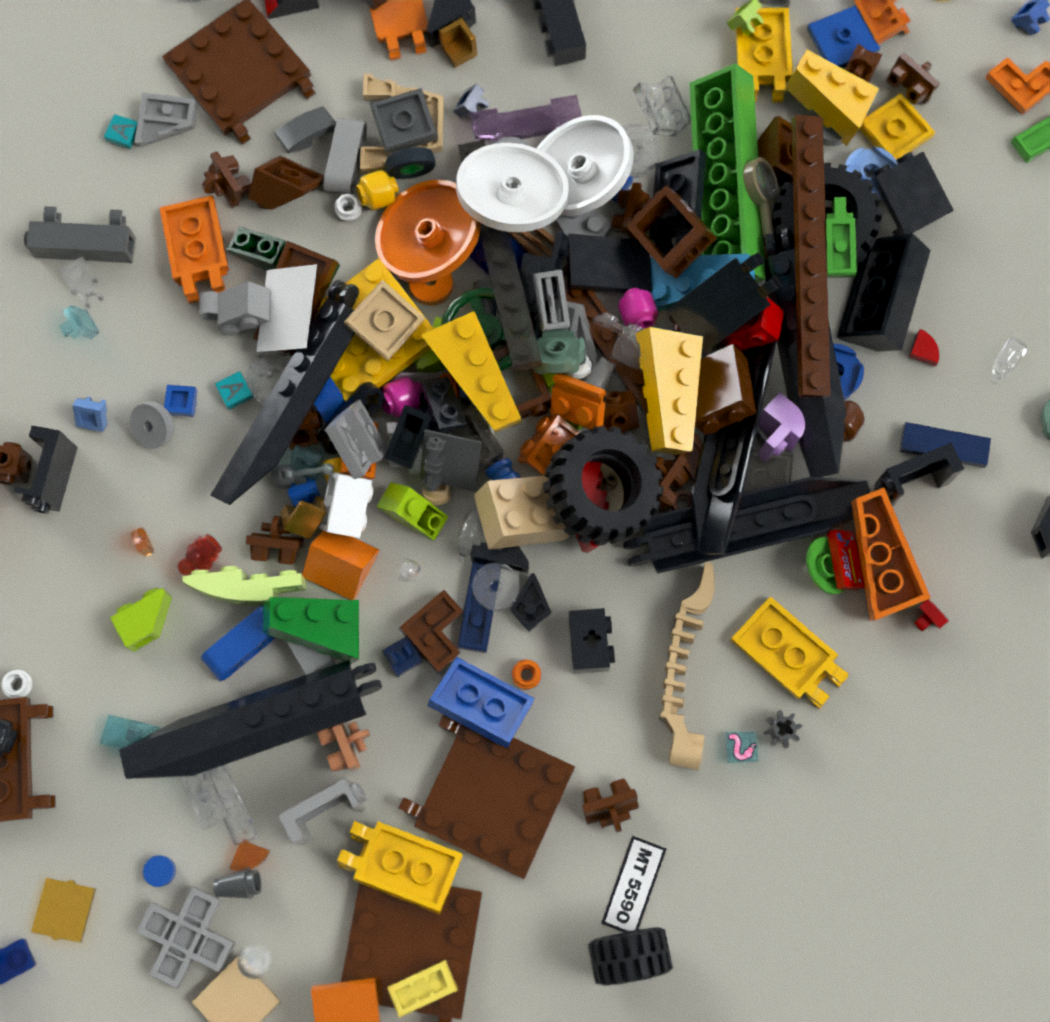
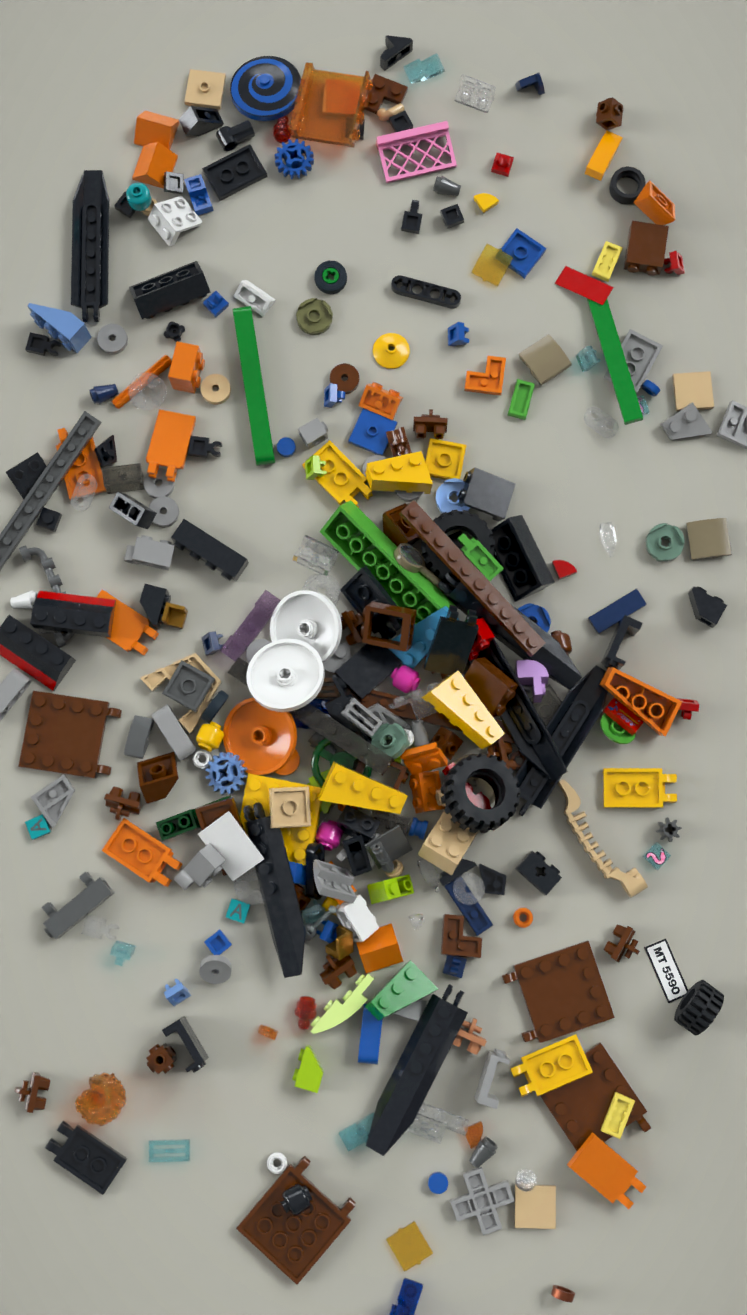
camera: 45 degrees left, 5 degrees up
(358, 240) = (232, 767): none -> medium blue gear
(481, 702) = (516, 952): blue plate -> none

